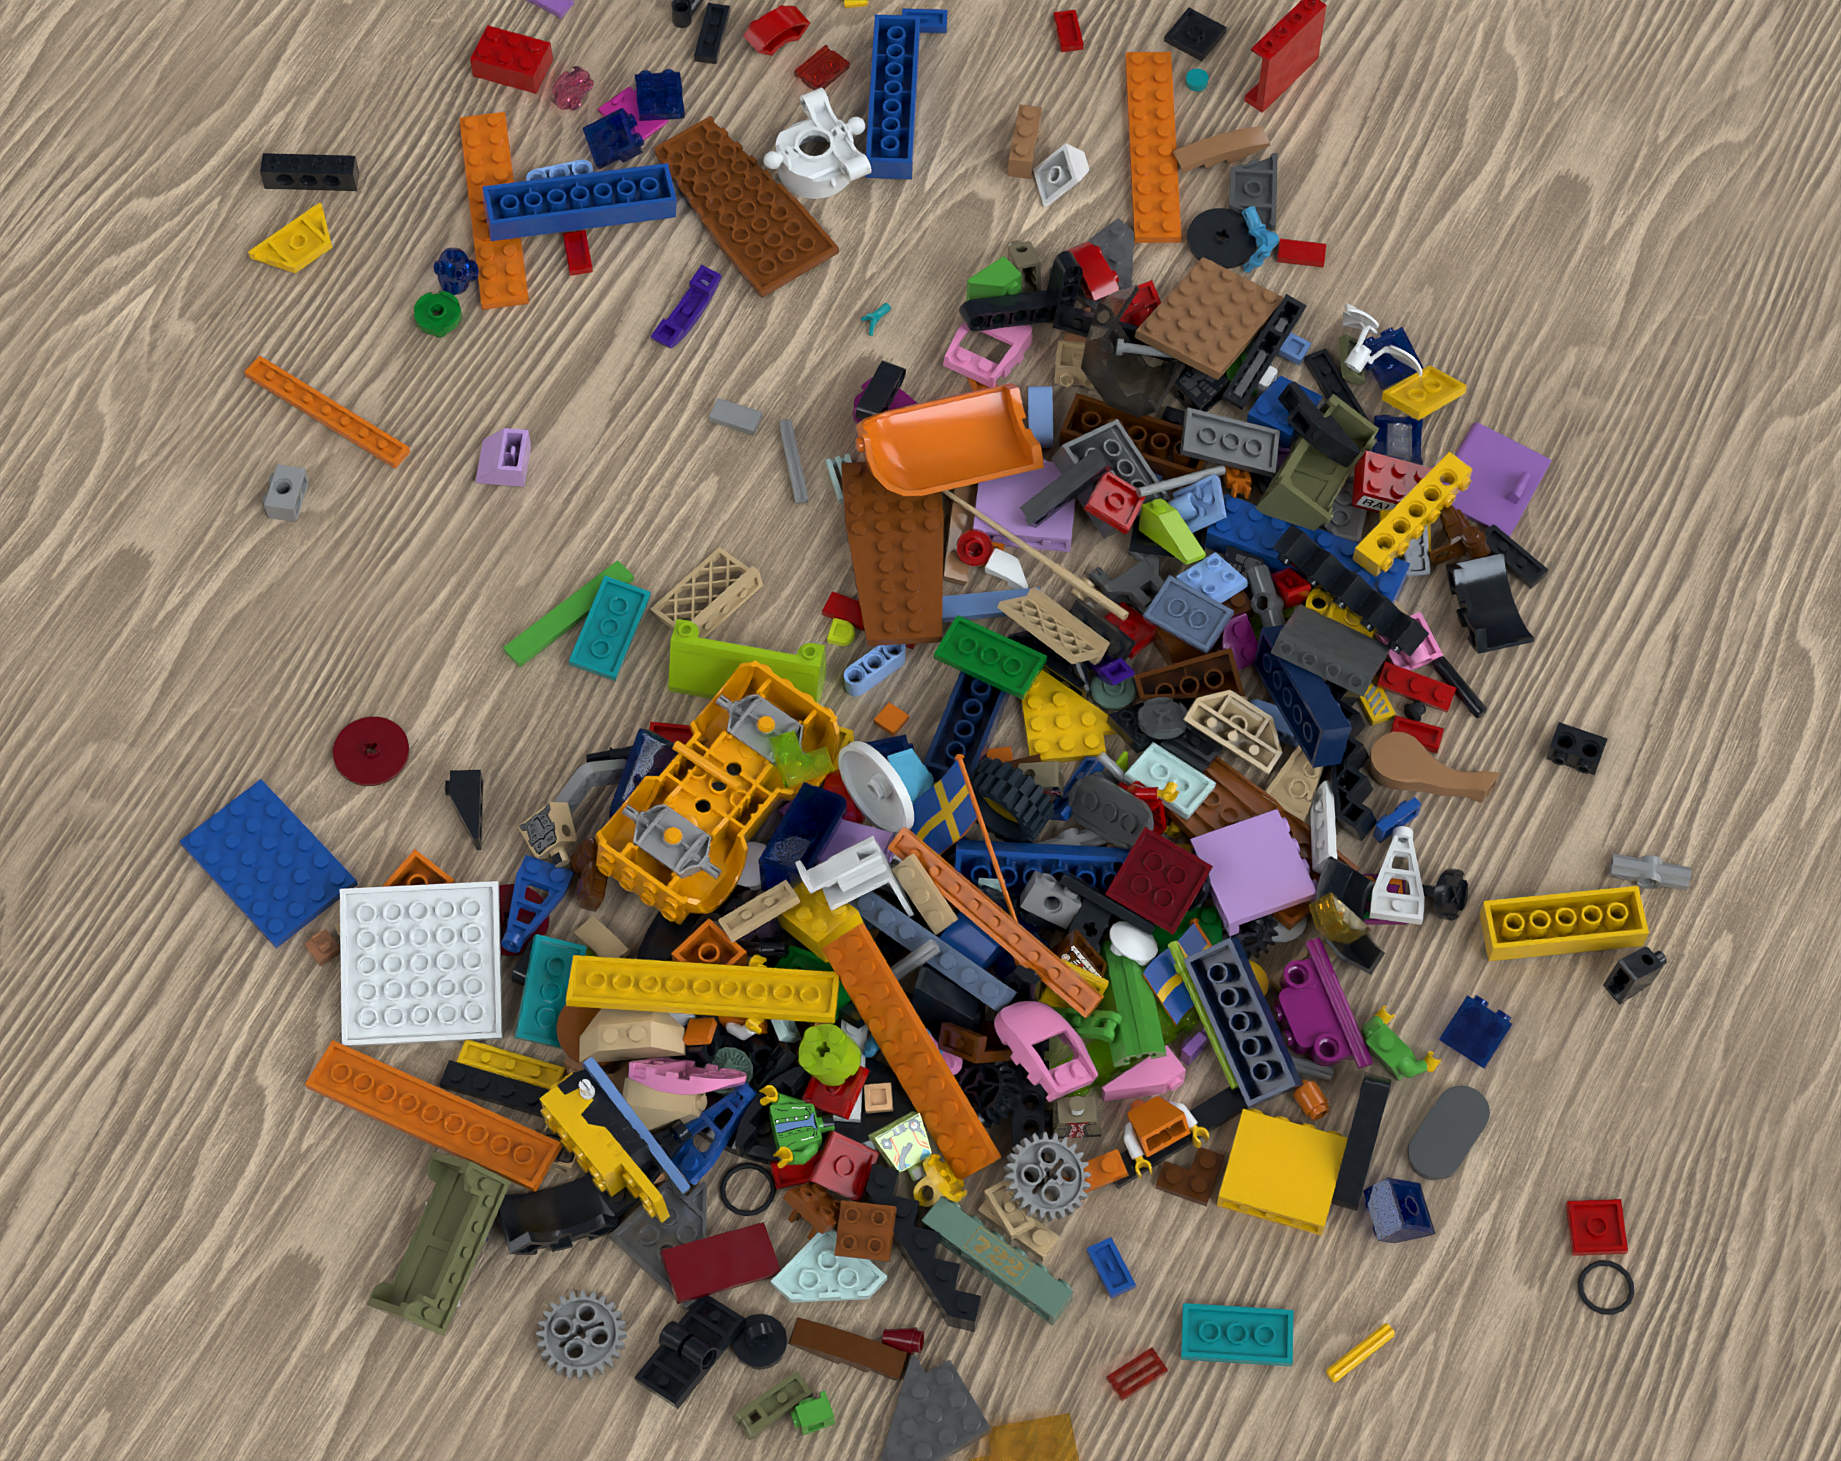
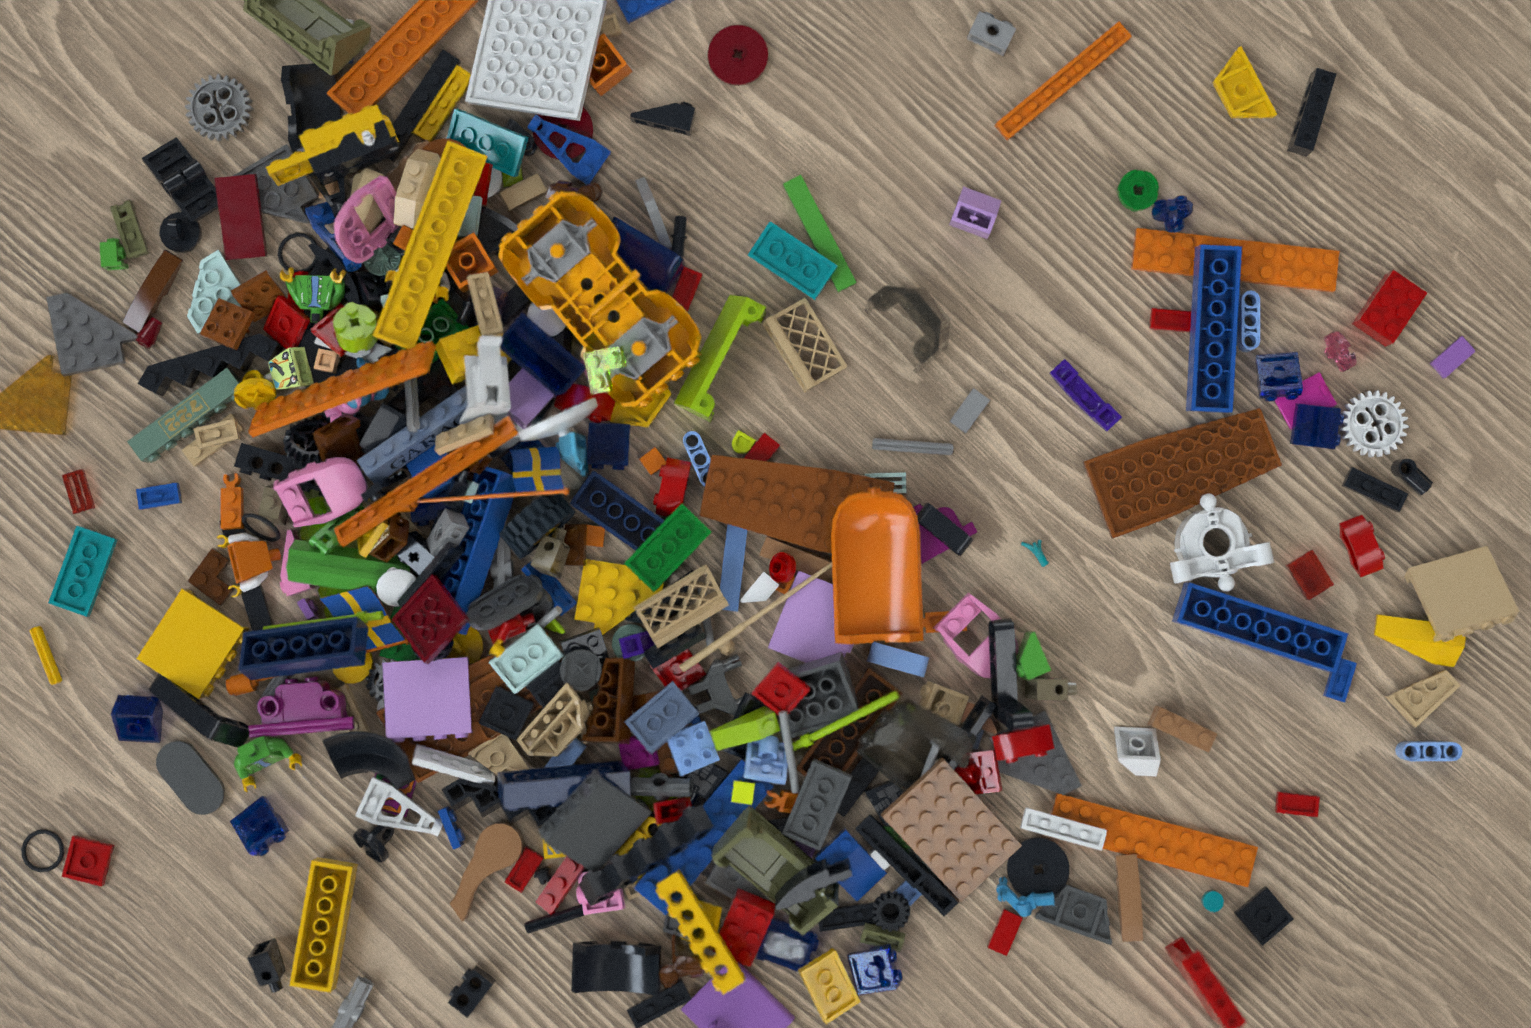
camera: 105 degrees right, 25 degrees up
(550, 832) = (619, 172): torso -> none
(630, 481) = (924, 313): none -> clear smoke windscreen
(641, 47) = (1390, 415): none -> white gear
(659, 1156) = (343, 173): medium blue tile -> none
(917, 684) = (673, 486): none -> red brick
(1065, 1194) = (214, 476): light grey gear -> none
(1066, 488) = (801, 653): black fence -> none
(1099, 1123) = (273, 539): none -> black piece
(1160, 469) = (808, 739): none -> lime bar
(1170, 218) = (1063, 828): none -> white plate
(1240, 790) = (506, 712): none -> black tile
(1243, 516) = (743, 792): none -> neon yellow tile
(1317, 365) = (882, 920): none -> black tyre
(1337, 920) = (354, 744): clear yellow slope -> none
(1361, 354) = (875, 943): white plant -> none

